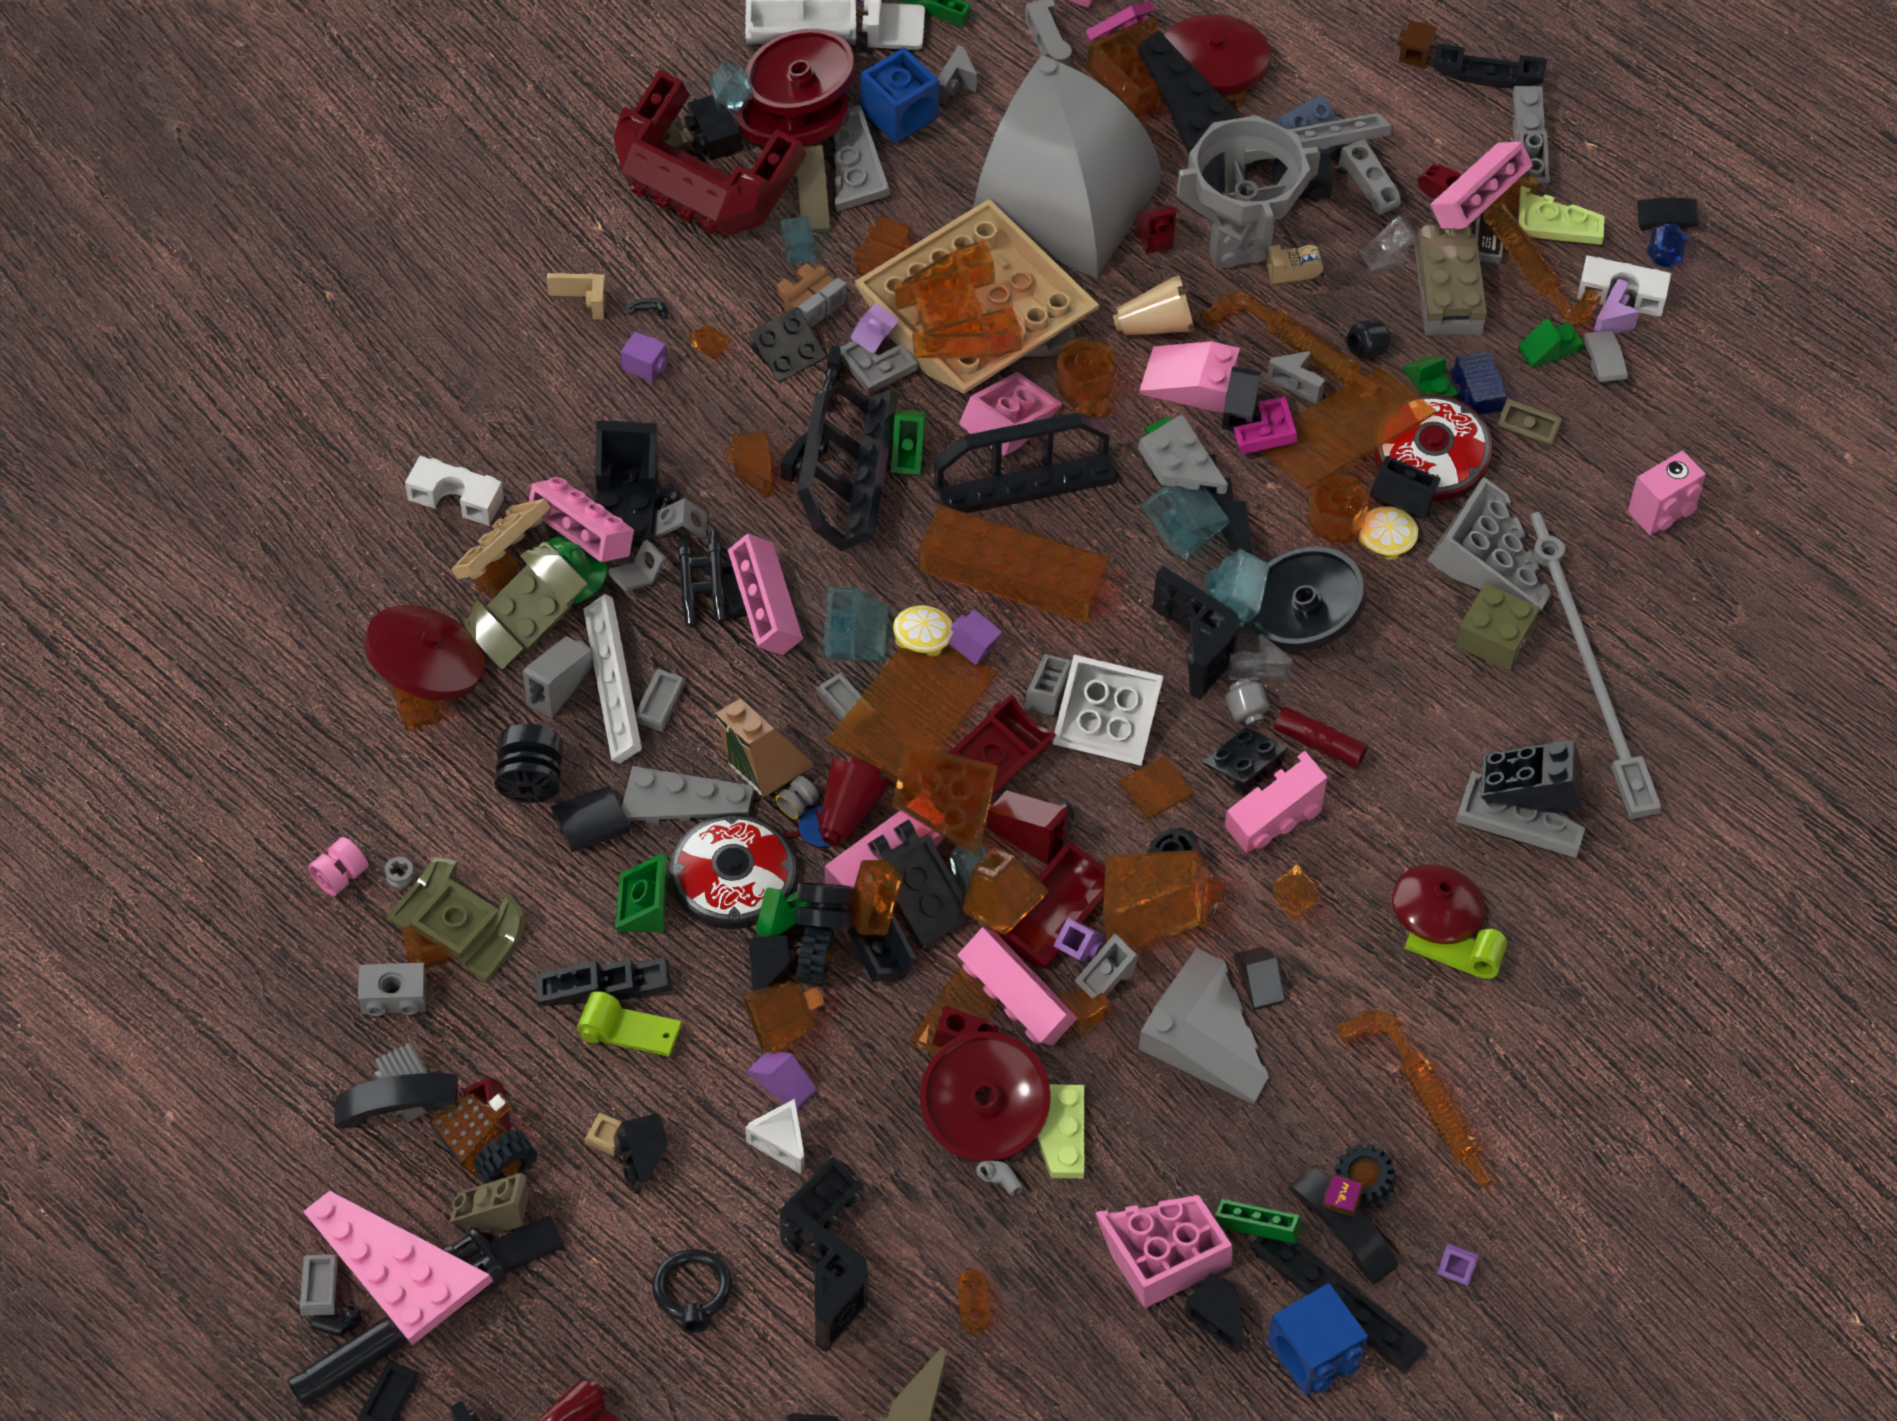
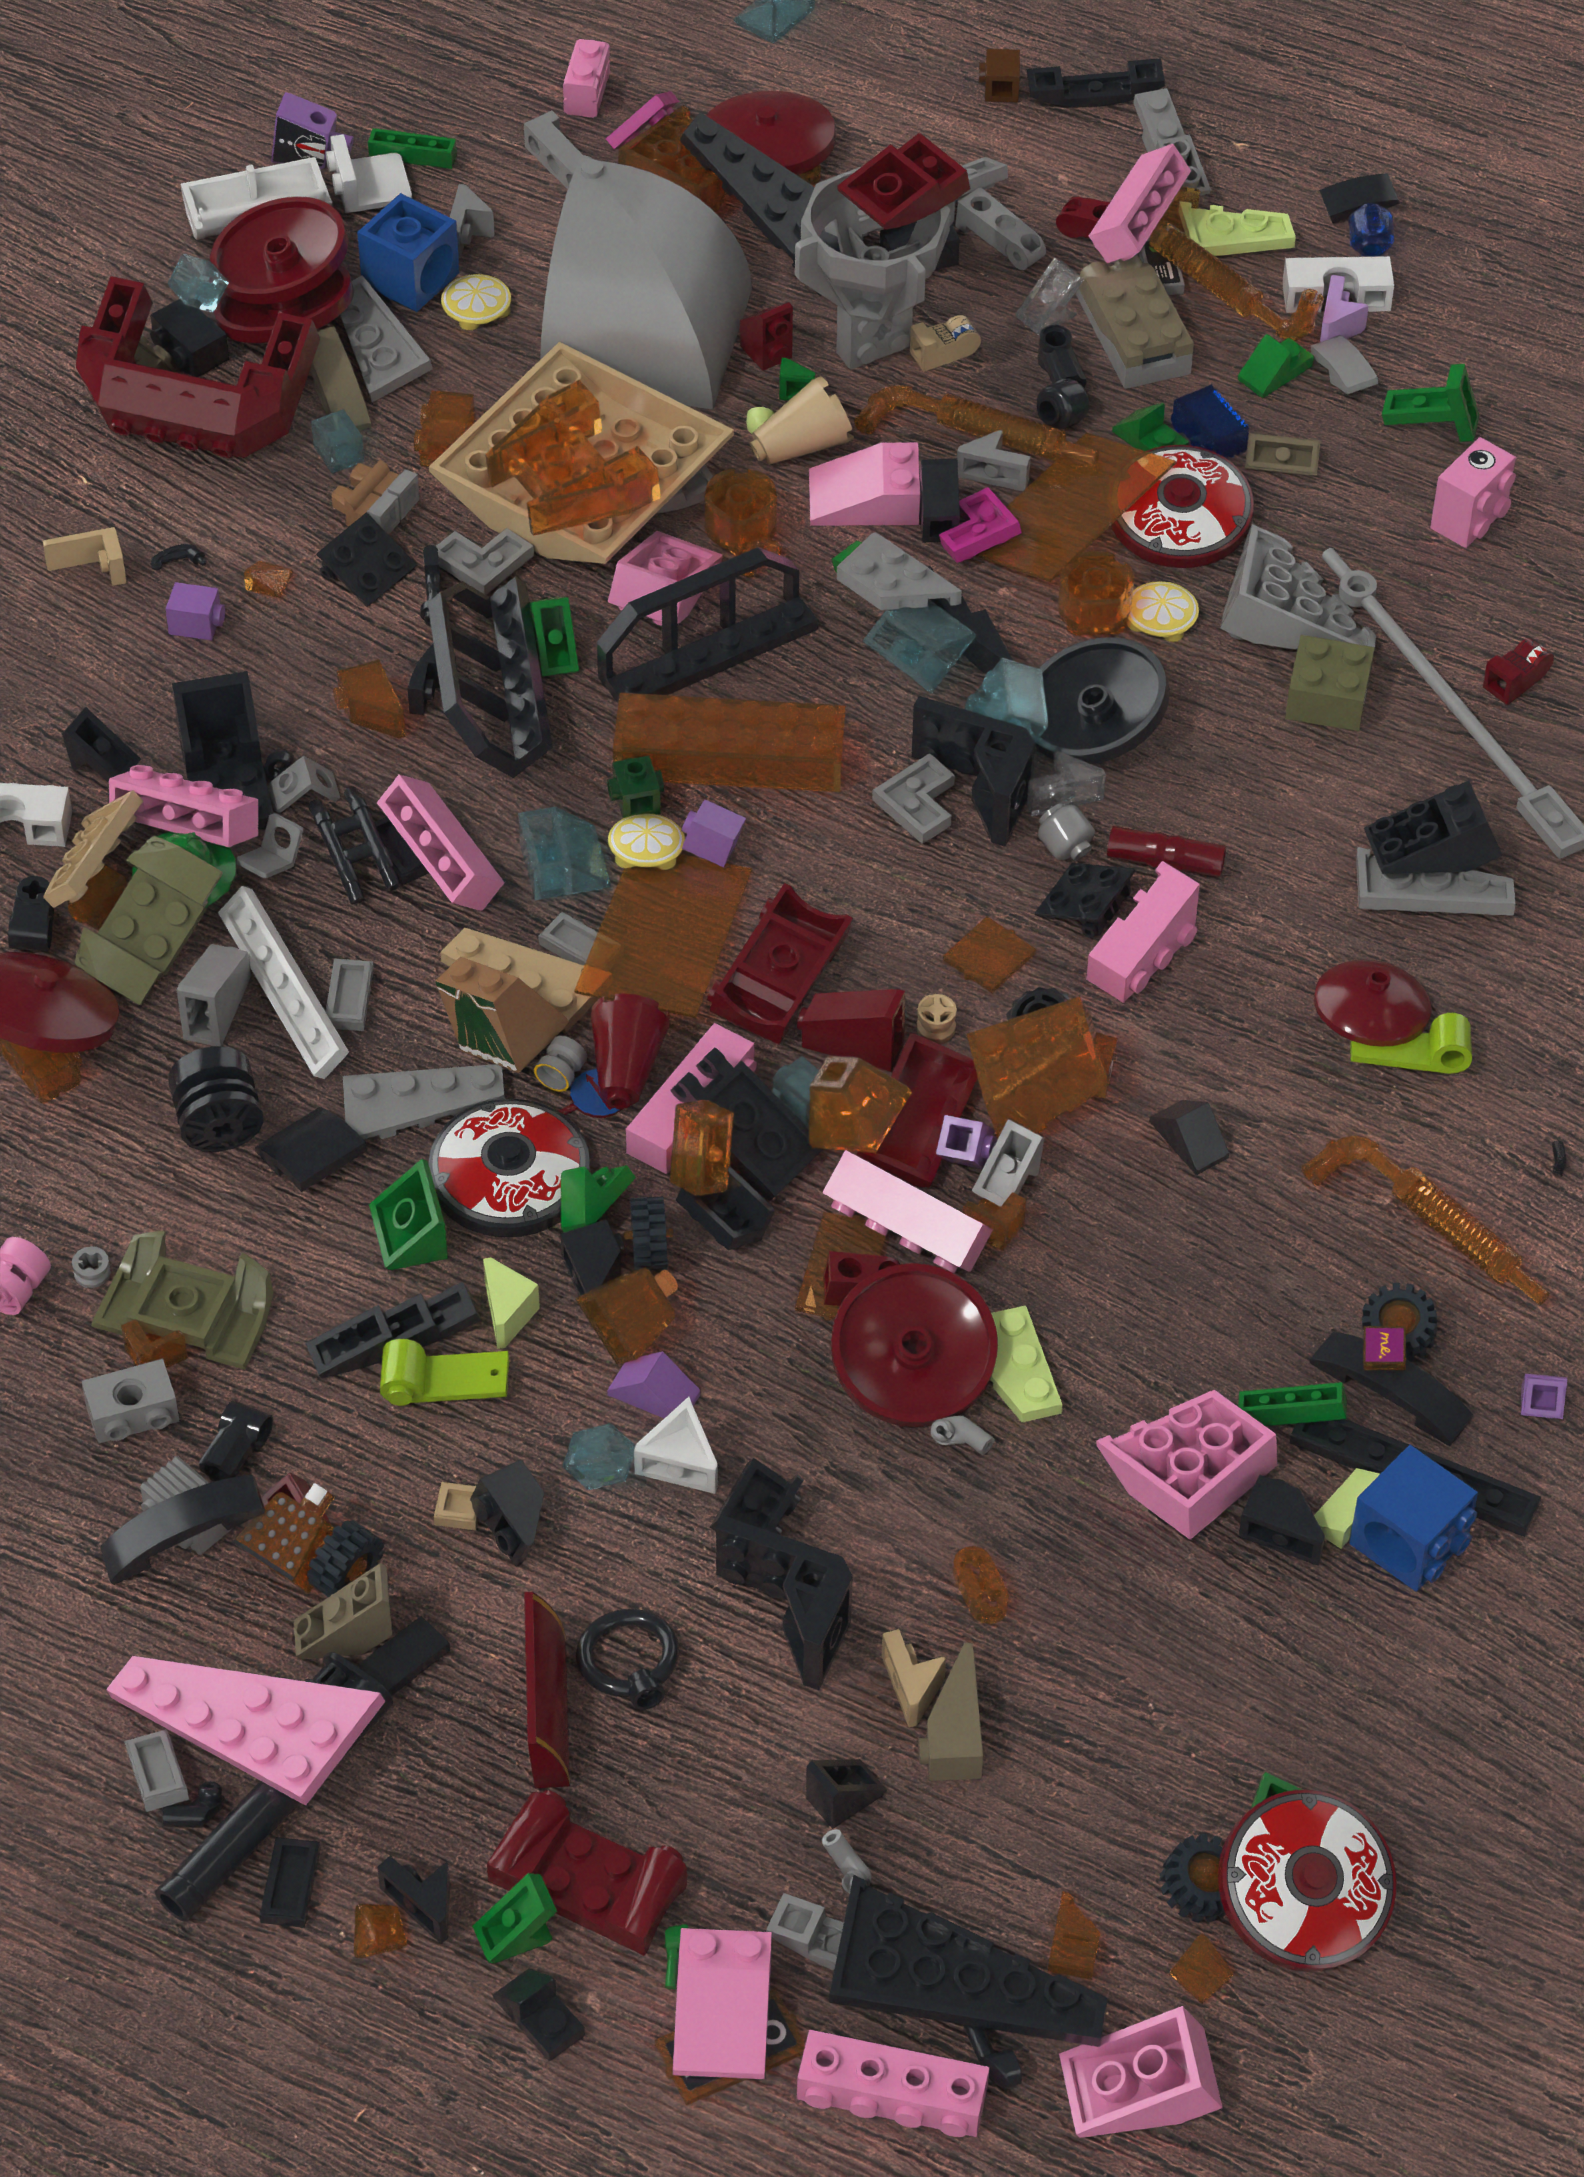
camera: 15 degrees left, 5 degrees down
(441, 584) = (32, 916): none -> black piece
(464, 1033) = (239, 1433): none -> black piece
(534, 451) = (94, 743): none -> black slope
(617, 1302) = (546, 1694): none -> dark red slope
(696, 981) = (510, 1299): none -> yellowish green slope
(719, 1124) = (599, 1456): none -> clear light blue brick
(793, 715) = (544, 973): none -> tan wing
(825, 905) = (645, 1169): black wheel -> none
(873, 328) = (469, 512): lavender slope -> none
(896, 1368) = (912, 1682): none -> tan slope
(928, 583) = (638, 780): none -> dark green brick
(943, 144) = (476, 300): none -> dish
(946, 794) = (749, 1006): clear orange wedge -> none
(1048, 686) = (819, 870): light grey slope -> none
(1090, 826) = (943, 1012): none -> tan wheel
(1107, 710) = (904, 877): white slope -> none
(1125, 294) = (756, 417): none -> yellowish green hinge
(1138, 638) = (911, 794): none -> light grey plate
(1163, 268) = (792, 378): none -> green slope
(1203, 1029) = (1147, 1213): light grey slope -> none
(1259, 1319) = (1338, 1512): none -> yellowish green slope
(1279, 141) = (906, 183): none -> dark red slope
(1295, 892) = (1199, 1029): clear orange panel -> none
(1380, 301) = (1057, 355): none -> black piece
(1404, 487) = (1167, 554): black brick -> none
(1537, 1078) = (1559, 1162): none -> black leg
(1652, 651) = (1518, 669): none -> dark red leg
(1665, 409) = (1436, 404): none -> green bracket

